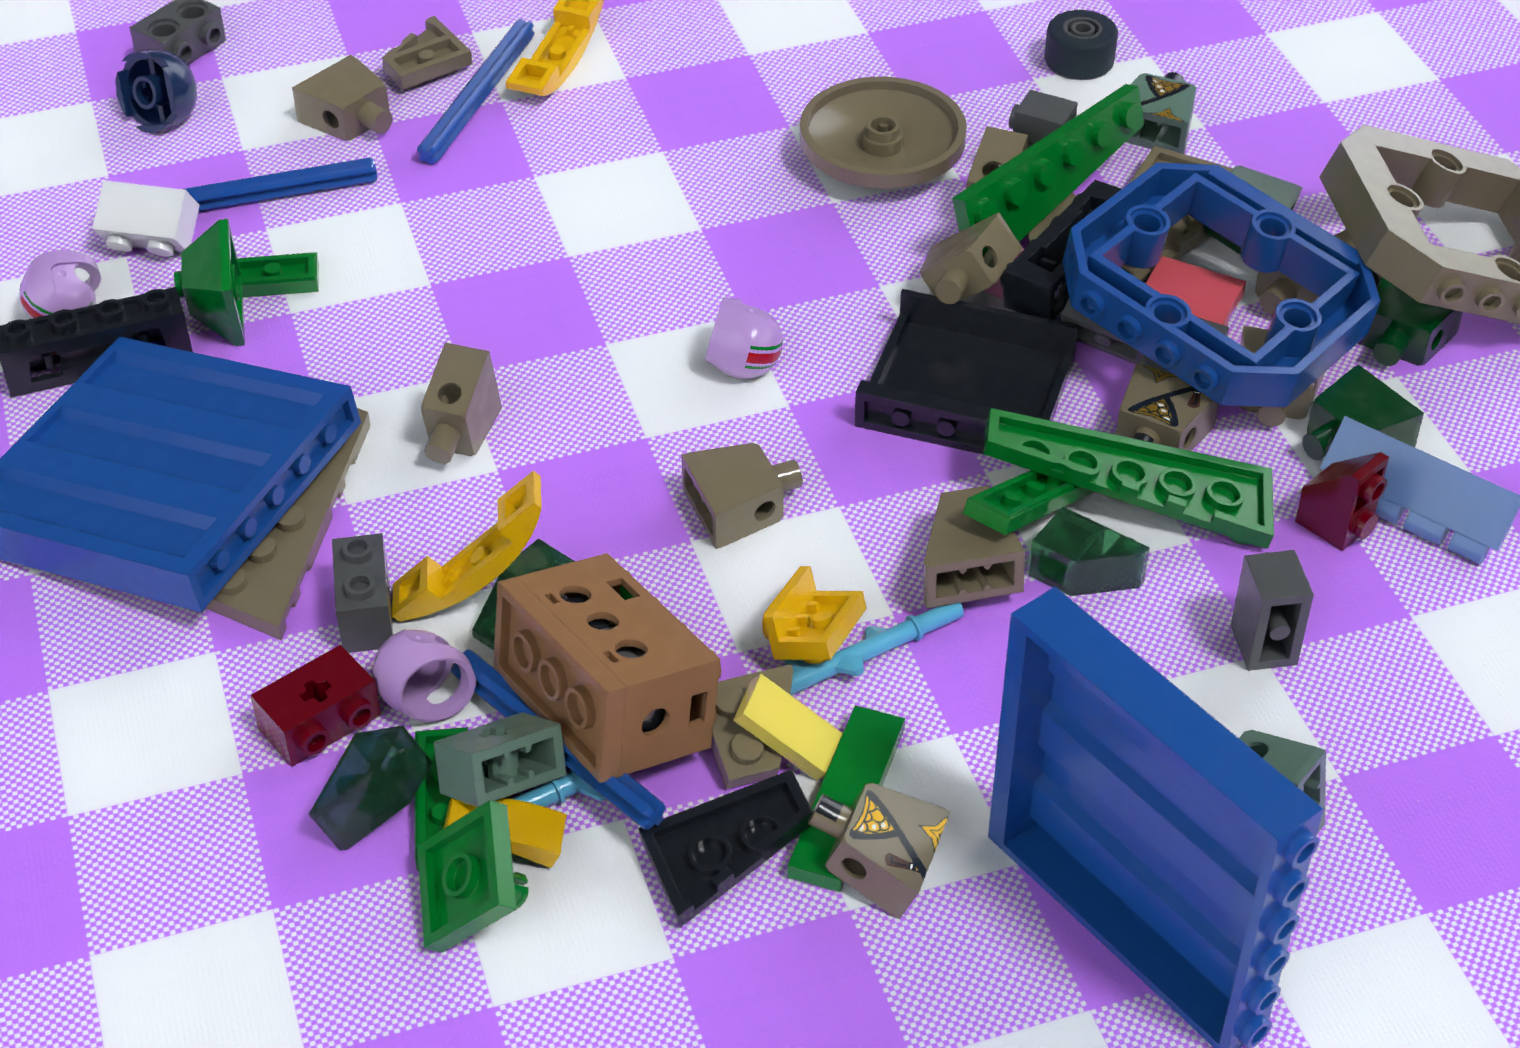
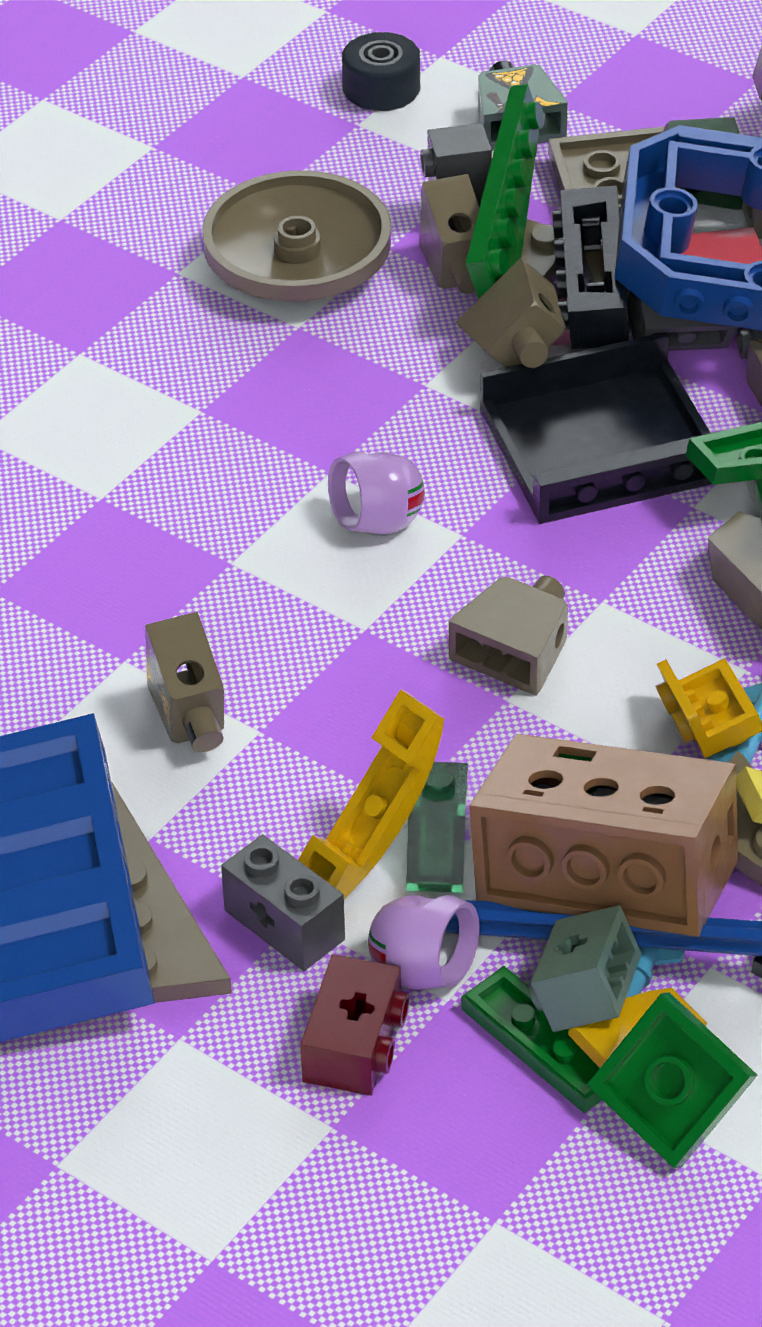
camera: 35 degrees left, 0 degrees up
(370, 784) = (488, 1055): slope -> none

